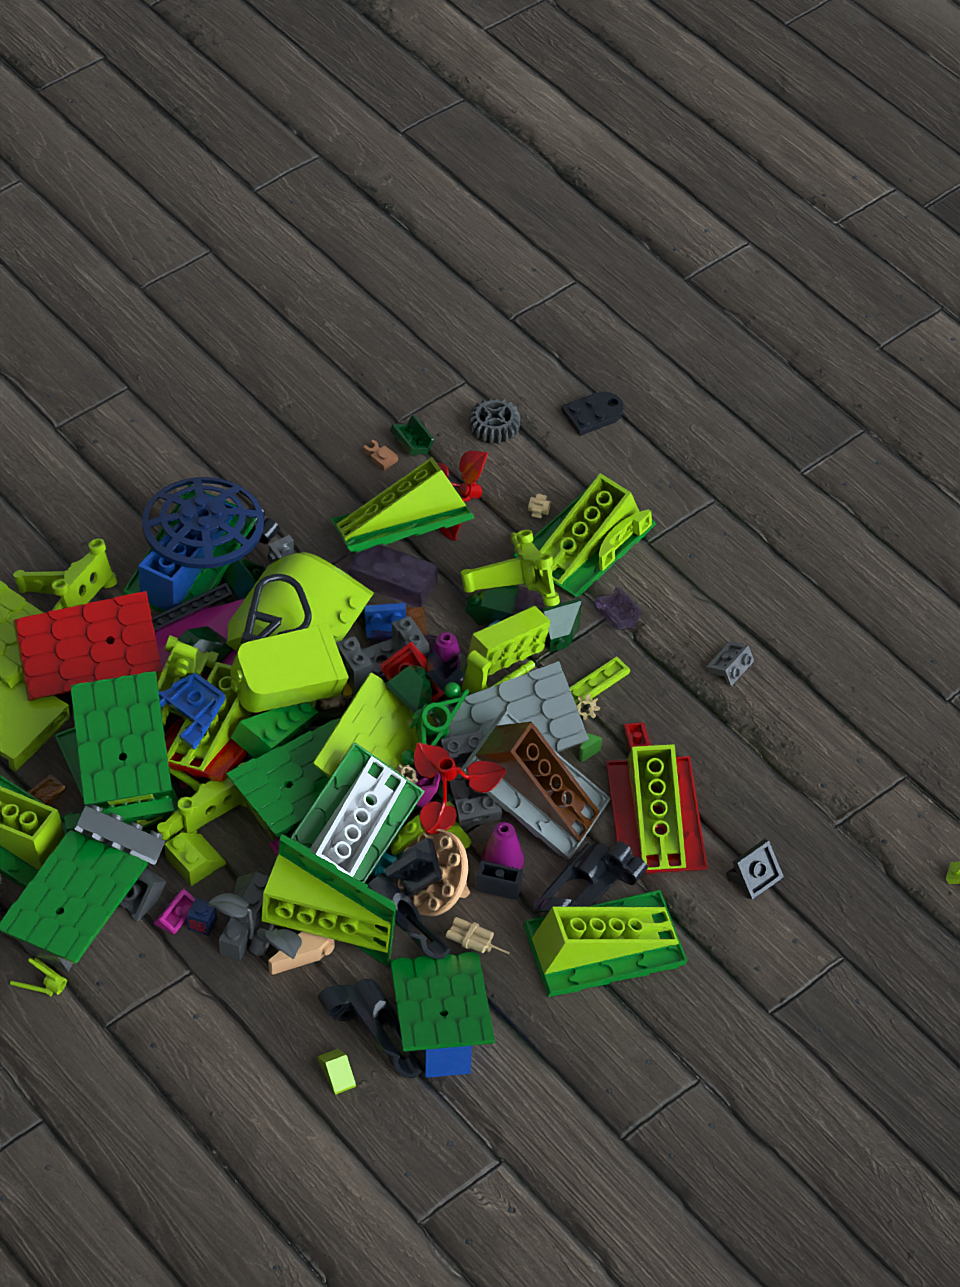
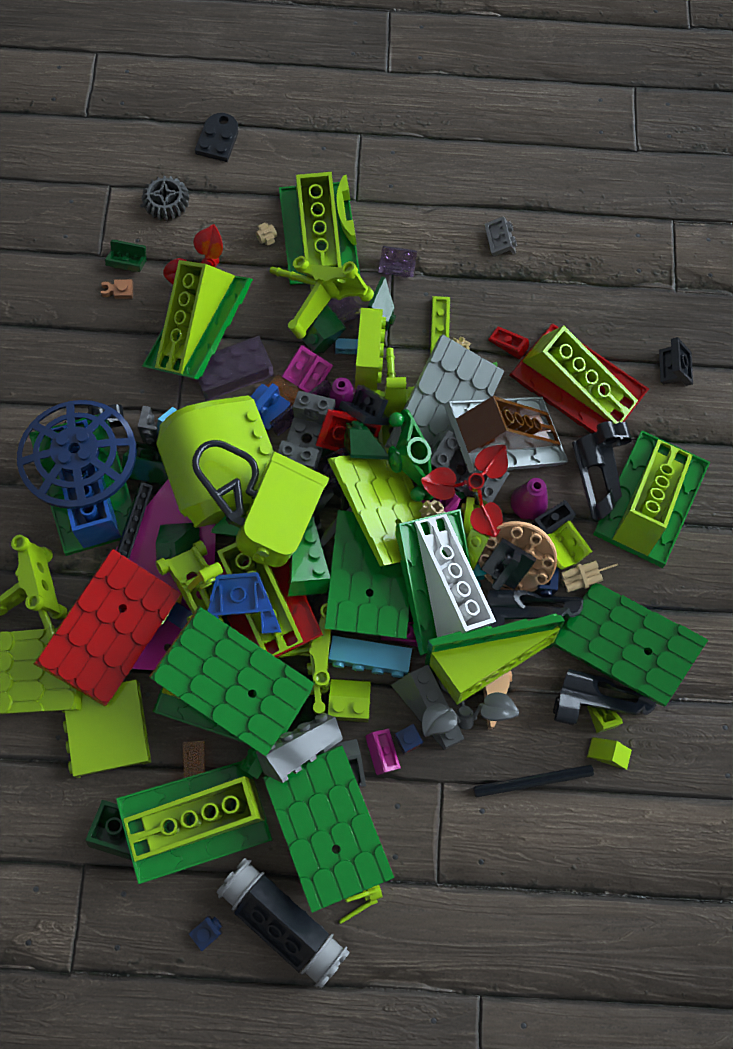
camera: 50 degrees left, 20 degrees up
(243, 838) = (370, 656): none -> medium azure brick
(257, 1031) = (533, 781): none -> black axle
(359, 1042) = (604, 719): none -> lime slope
(442, 922) = (551, 587): none -> dark blue bracket
(447, 618) = (306, 369): none -> dark pink slope
(482, 906) = (569, 546): none -> lime bracket

